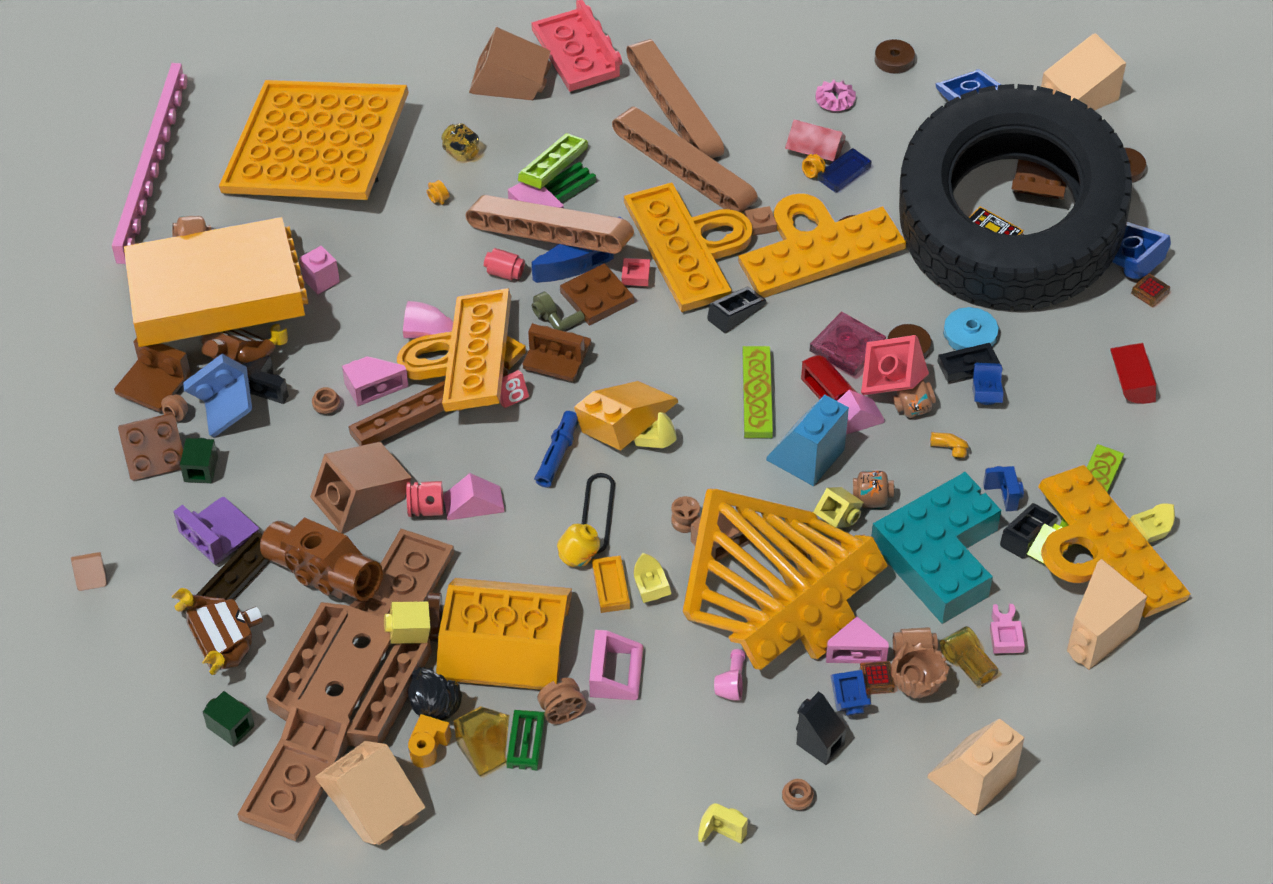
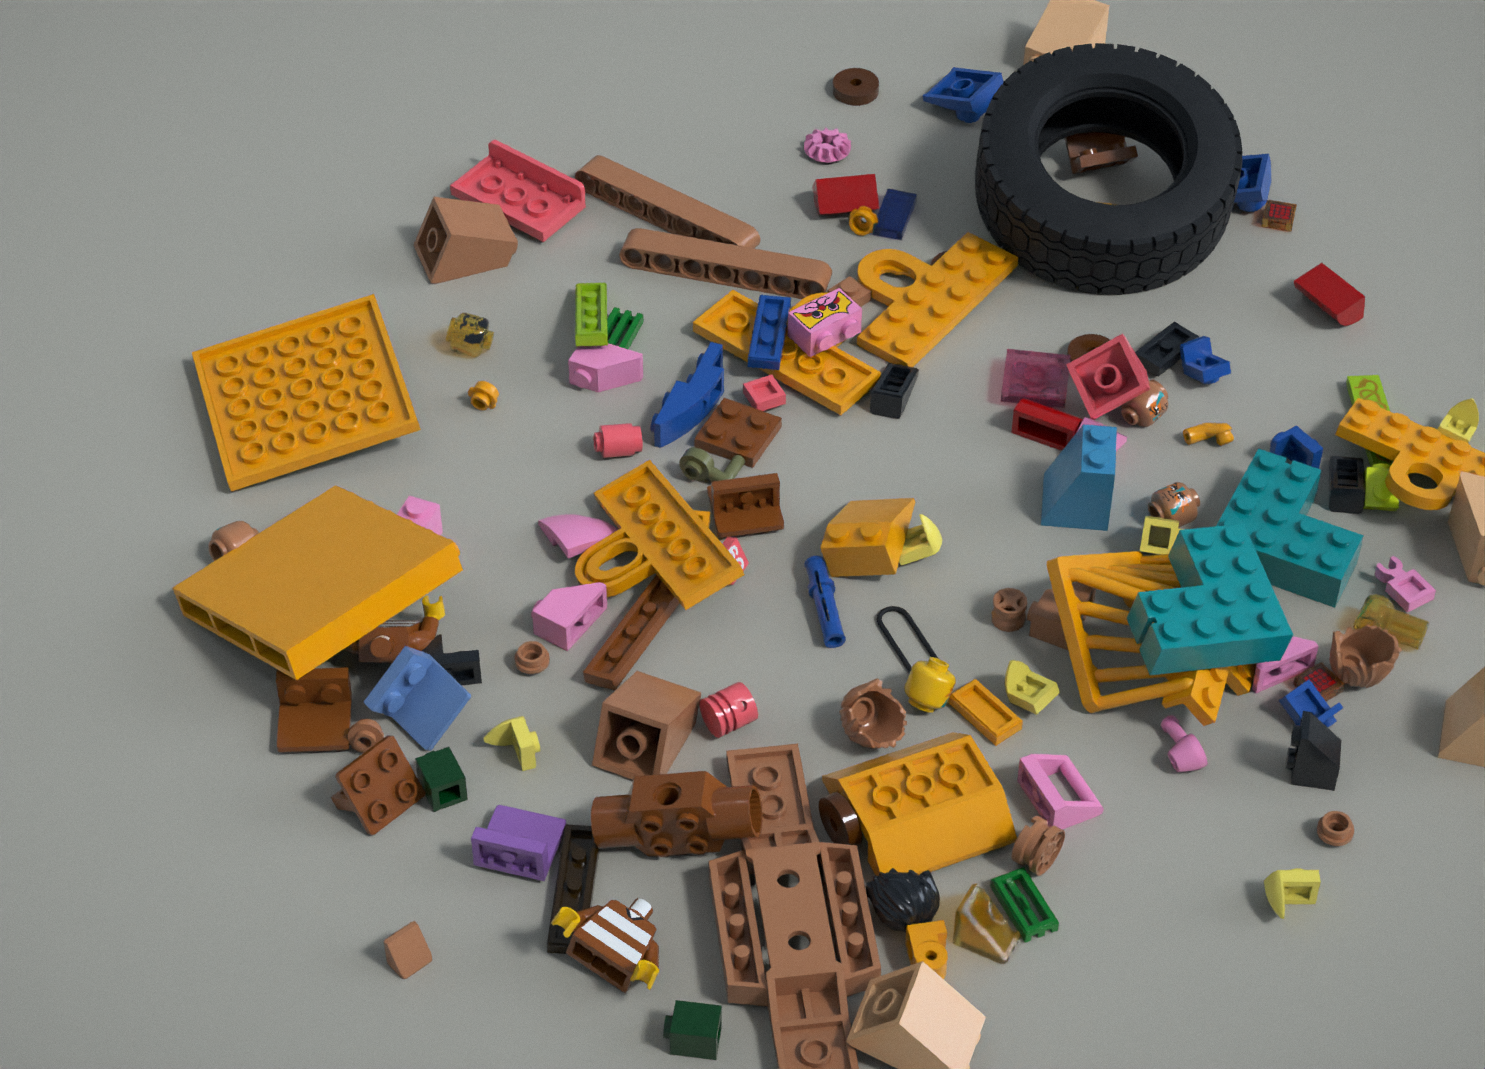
camera: 30 degrees left, 5 degrees down
(149, 162) = (127, 497): bright pink plate -> none
(272, 456) = (516, 733): none -> light yellow plate
(408, 622) = (832, 834): light yellow brick -> none
(473, 498) = (777, 688): bright pink slope -> none
(517, 549) = (872, 716): none -> nougat hair
(550, 224) = (645, 376): nougat beam -> none
(670, 226) = (769, 332): none -> blue tile
(713, 234) = (824, 322): none -> bright pink brick
(757, 392) = (981, 462): lime tile -> none
(804, 593) = (1218, 615): none -> teal piece
(916, 636) = (1323, 630): nougat brick -> none
(970, 328) = (1140, 317): medium azure plate -> none

